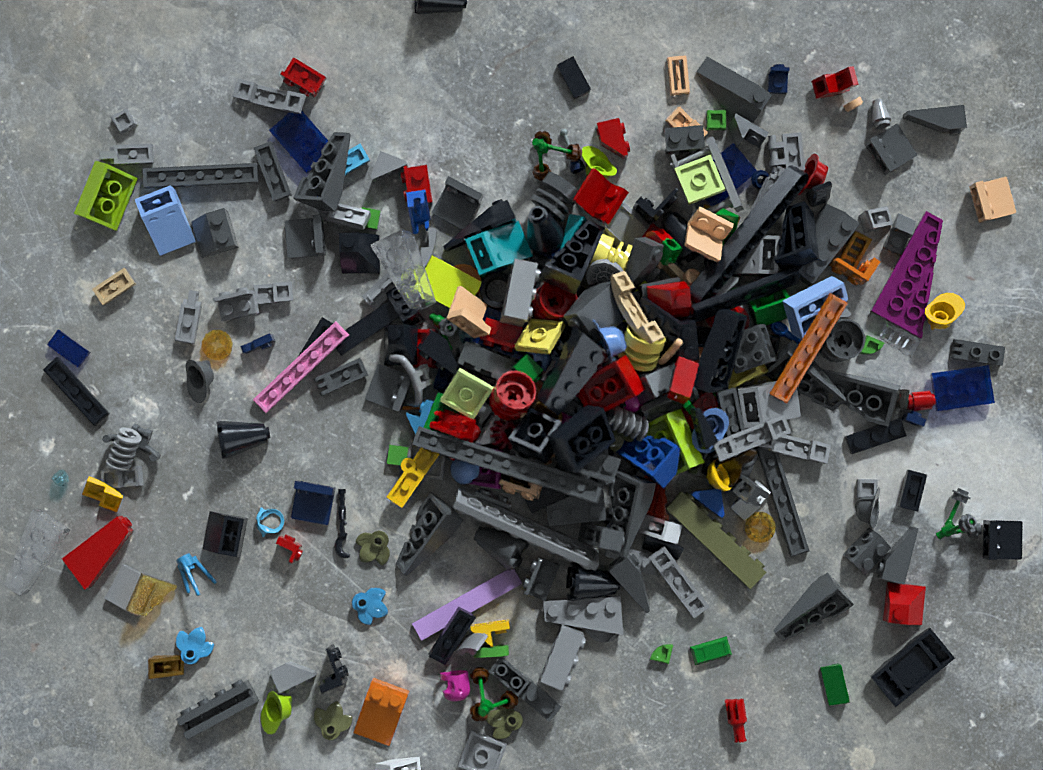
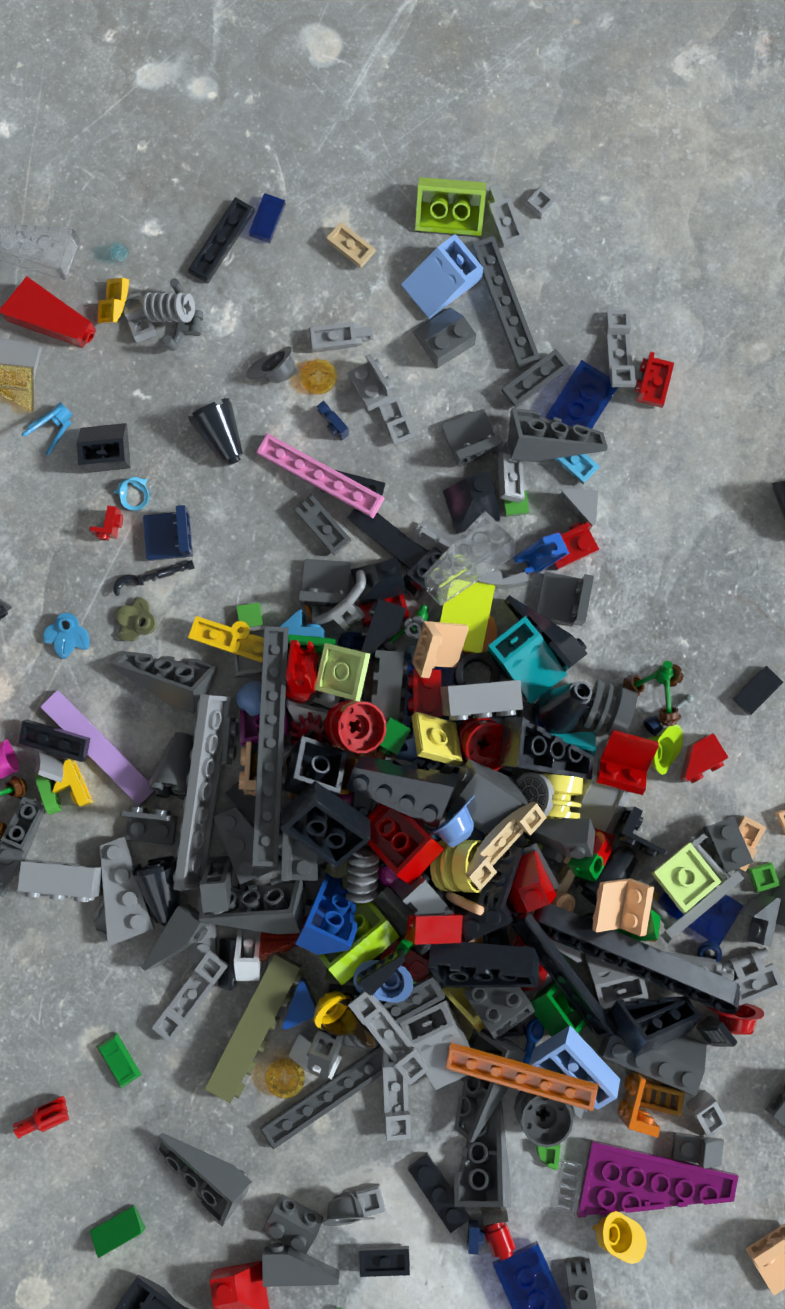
camera: 75 degrees right, 5 degrees down
(662, 653) = (99, 1001): bright green tile -> none

